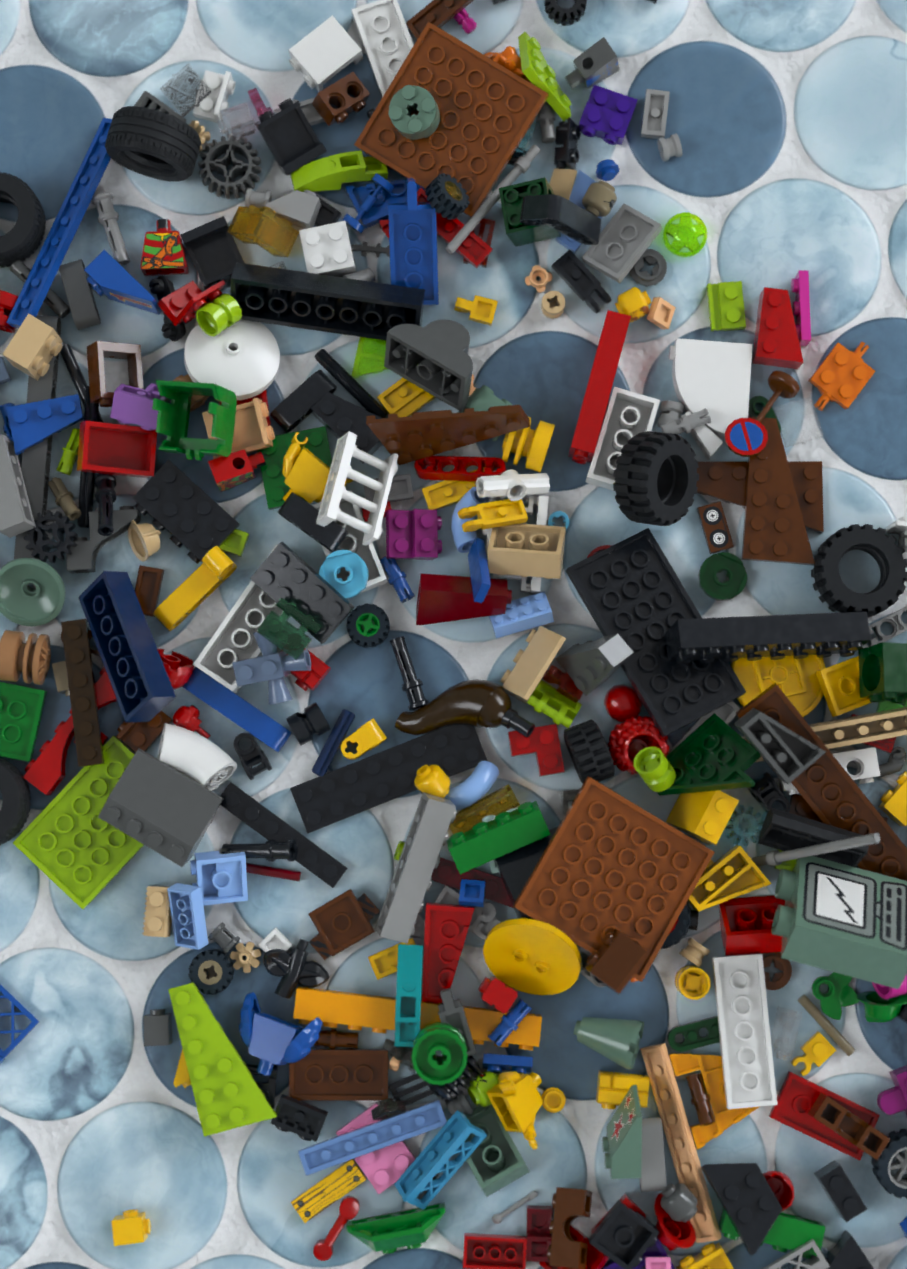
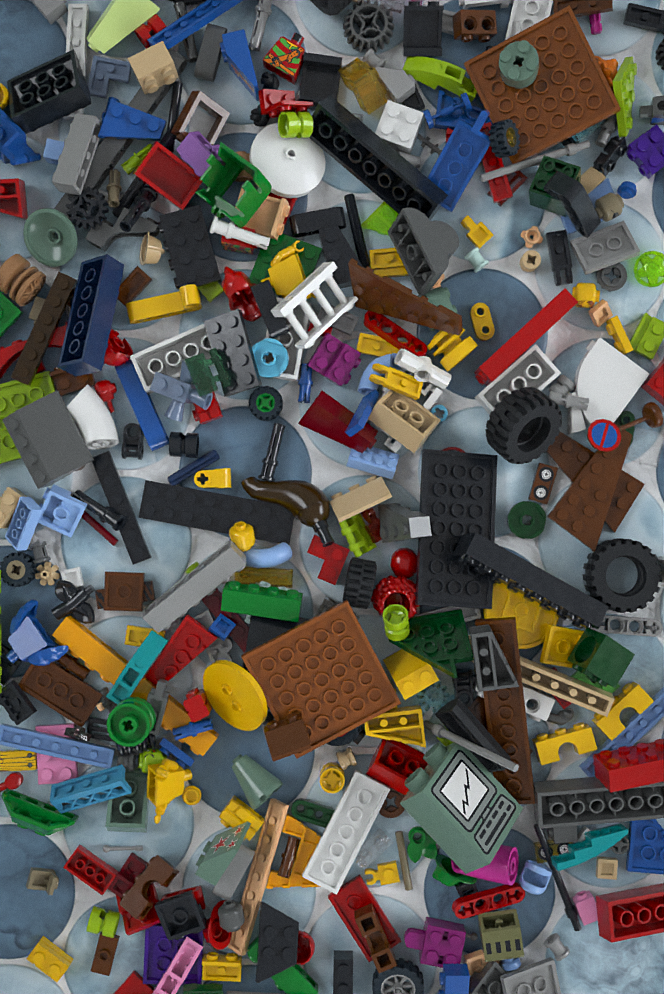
camera: 30 degrees right, 5 degrees up
(220, 465) = (230, 231): none -> white pin
(270, 526) = (240, 296): none -> red head
(496, 337) = (476, 260): none -> light aqua bush
(542, 398) = (481, 321): none -> yellow plate
(687, 320) = (617, 331): none -> yellow plate

